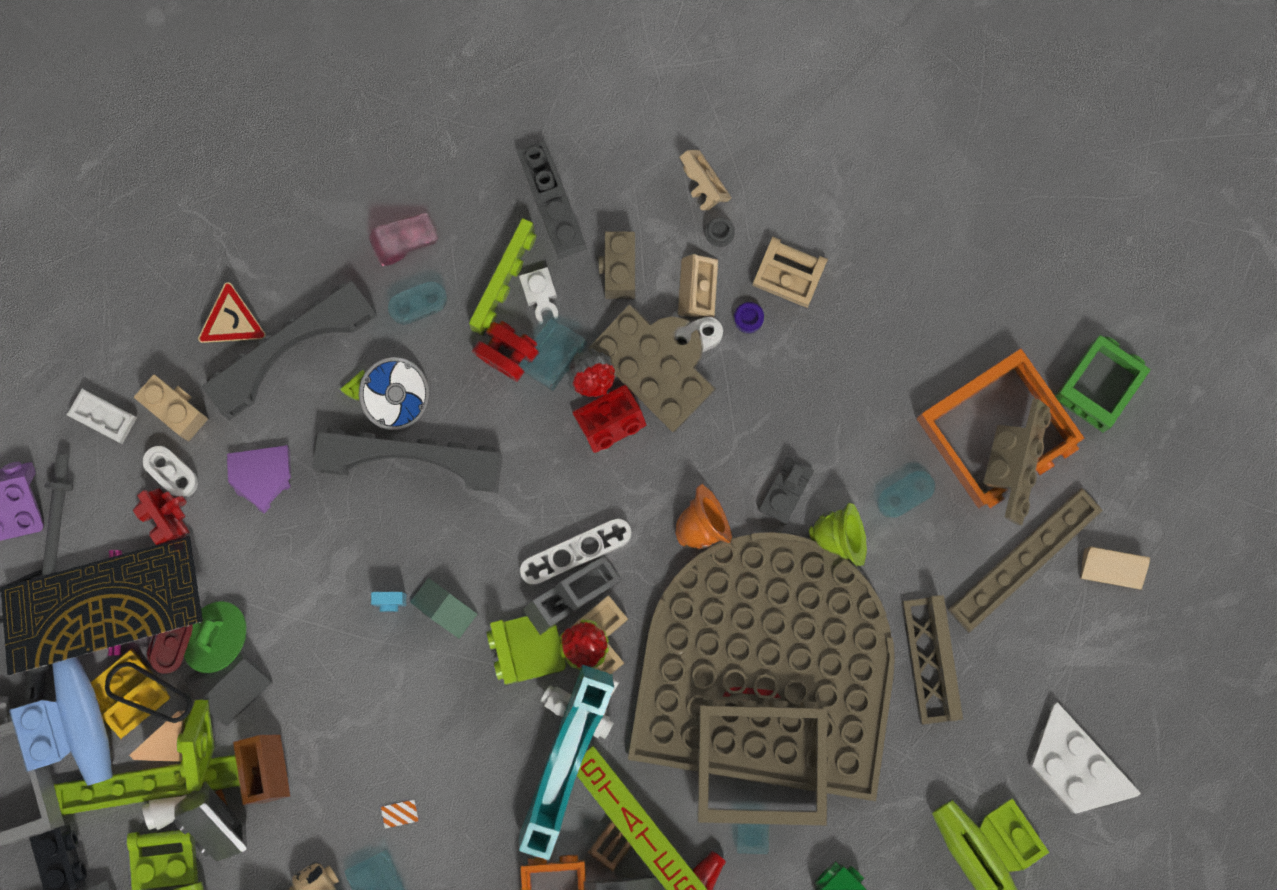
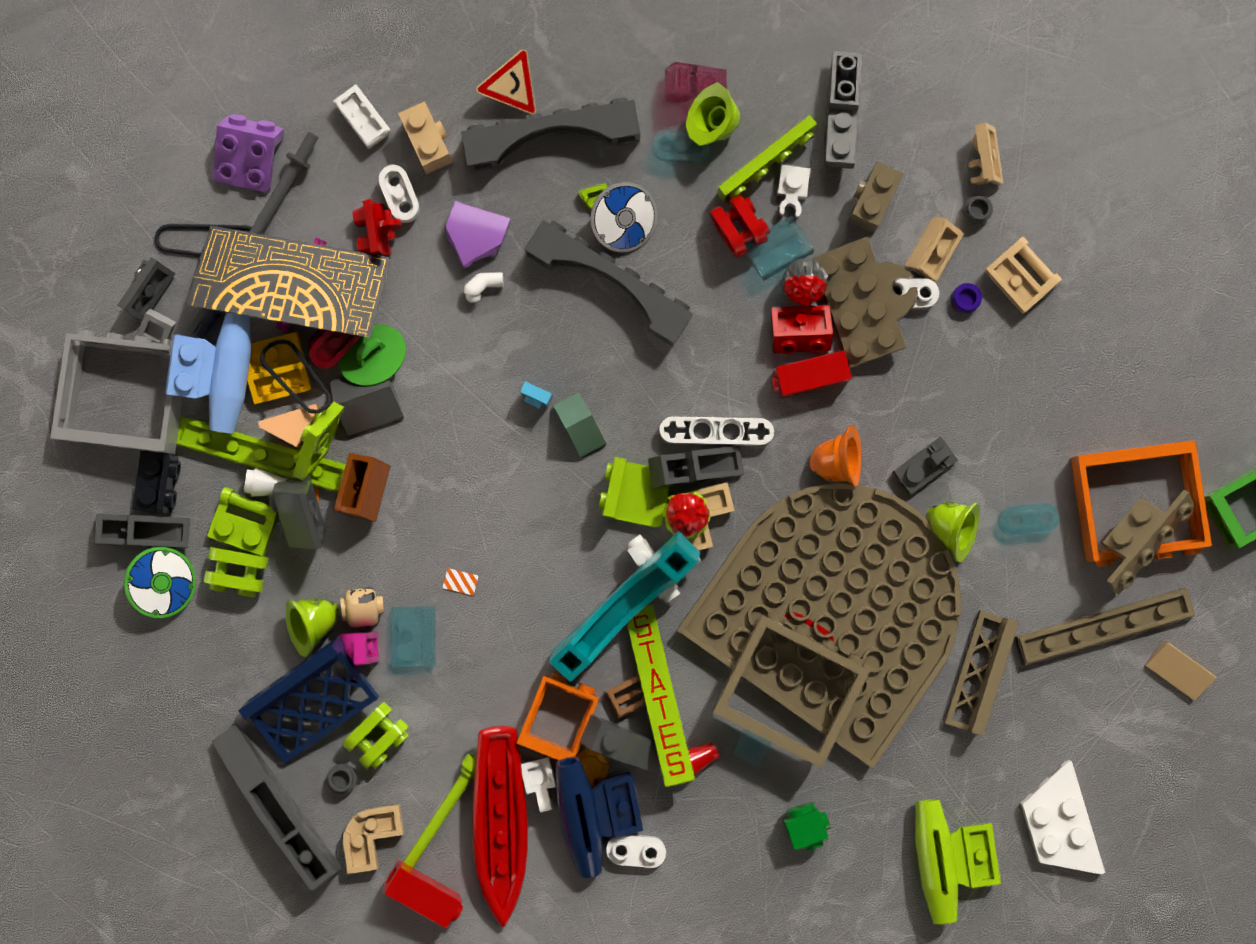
camera: 25 degrees right, 5 degrees up
(286, 518) = (479, 283): none -> white arm
(433, 261) = (712, 115): none -> lime piece
(639, 457) = (811, 374): none -> red brick

